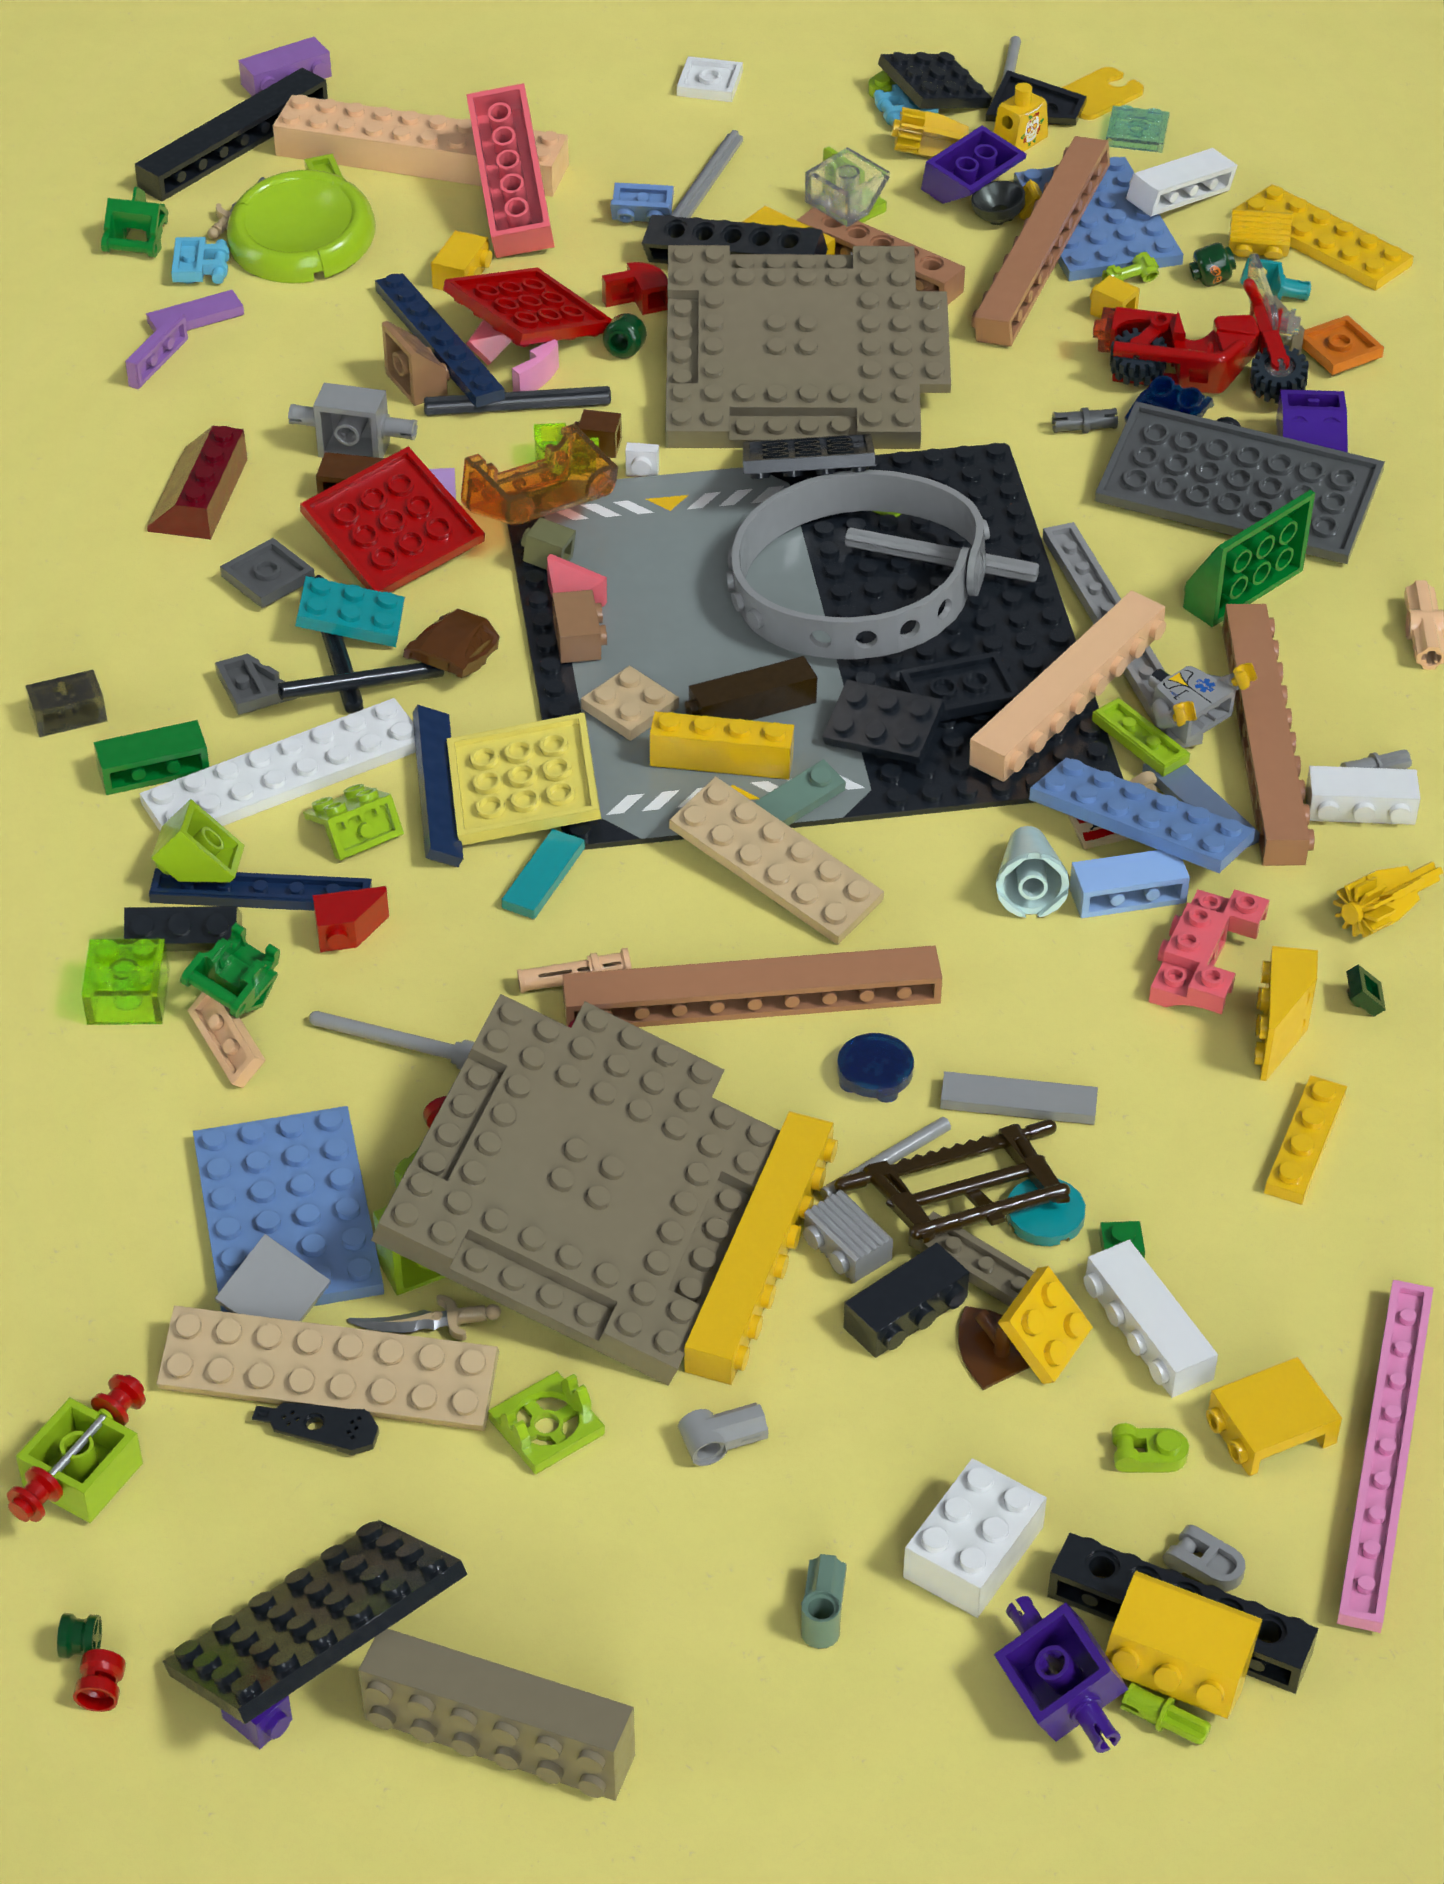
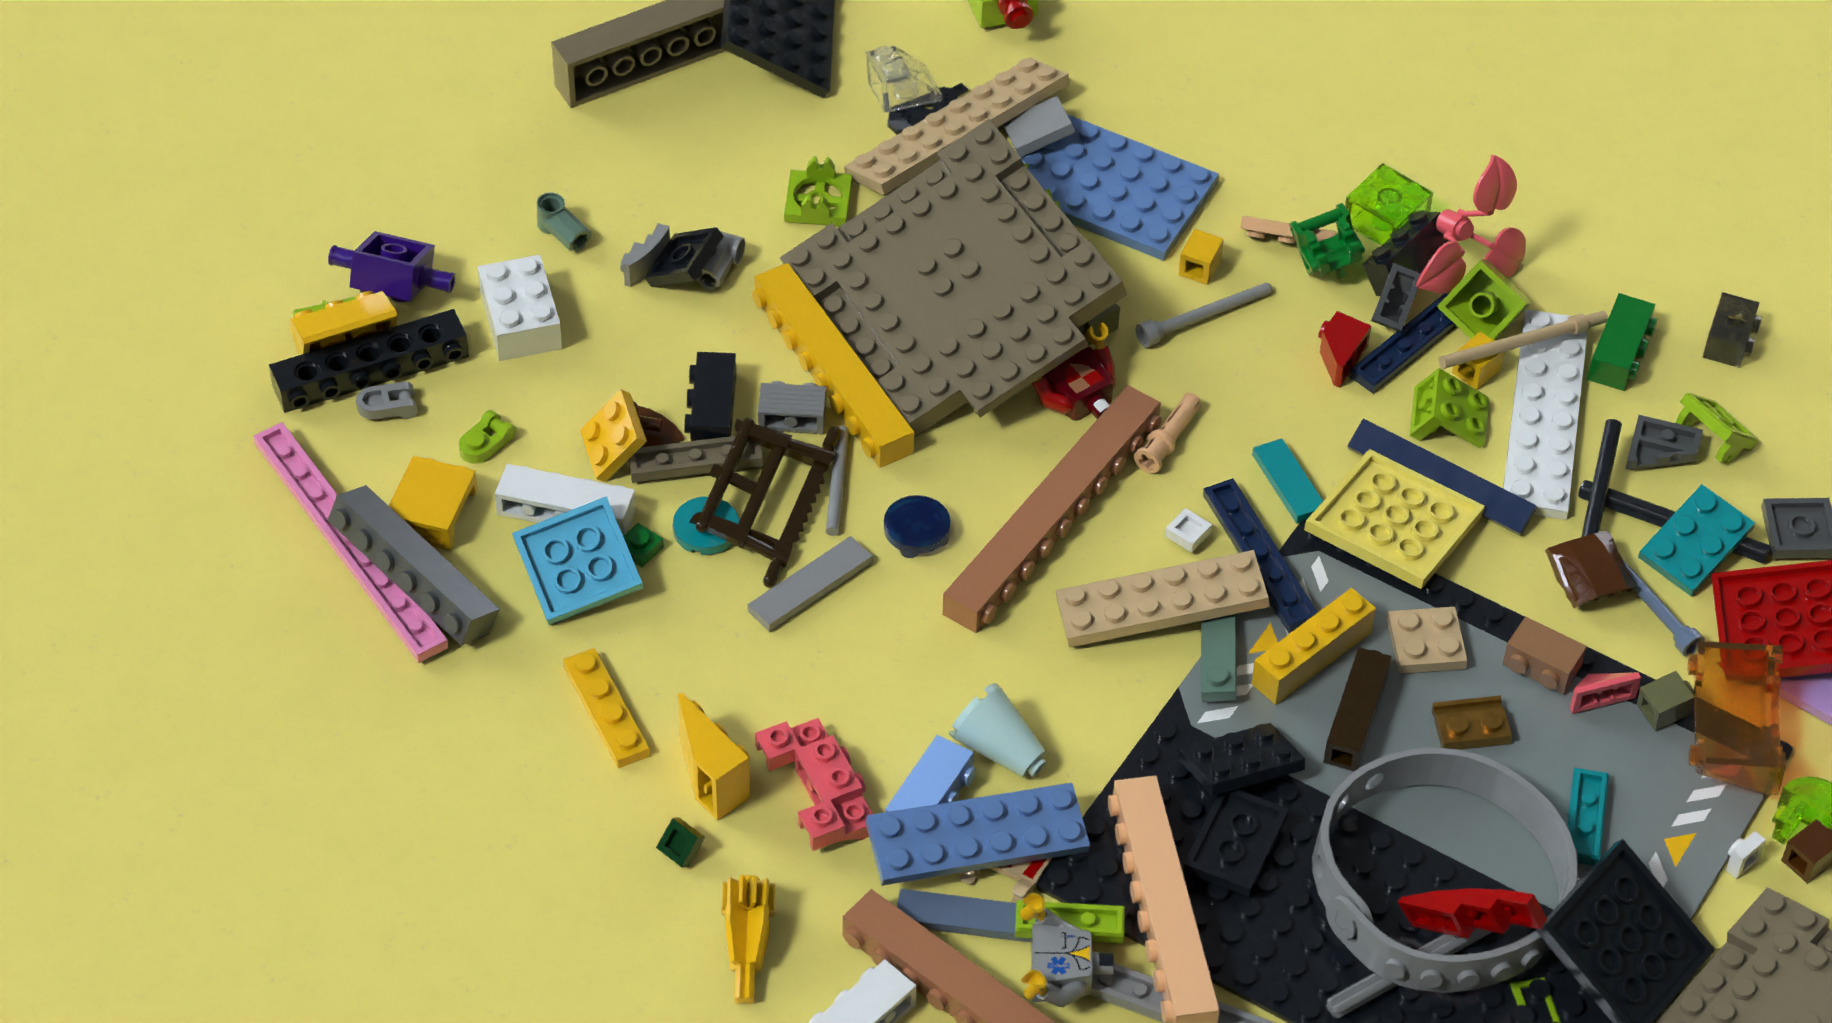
camera: 130 degrees right, 5 degrees up
(133, 876) = (1493, 191): none -> coral plant
(172, 778) = (1575, 325): none -> tan bar
(201, 652) = (1718, 420): none -> lime piece
(259, 898) = (1396, 298): none -> dark grey slope
(269, 828) = (1480, 370): none -> yellow brick
(313, 1453) = (900, 79): none -> clear slope
(327, 1073) = (1200, 256): none -> yellow brick
(459, 579) = (1684, 636): none -> sand blue piece
(646, 845) = (1249, 534): none -> dark blue tile
(675, 896) = (1188, 530): none -> white plate
(685, 641) = (1471, 723): none -> pearl gold plate
(695, 549) = (1587, 813): none -> teal tile
(764, 1443) = (684, 257): none -> black plate
(799, 1488) = (643, 256): none -> light grey slope
(895, 520) = (1463, 910): none -> red slope
(1207, 1243) = (577, 560): none -> medium azure plate
(1364, 1355) = (413, 565): none -> dark grey brick

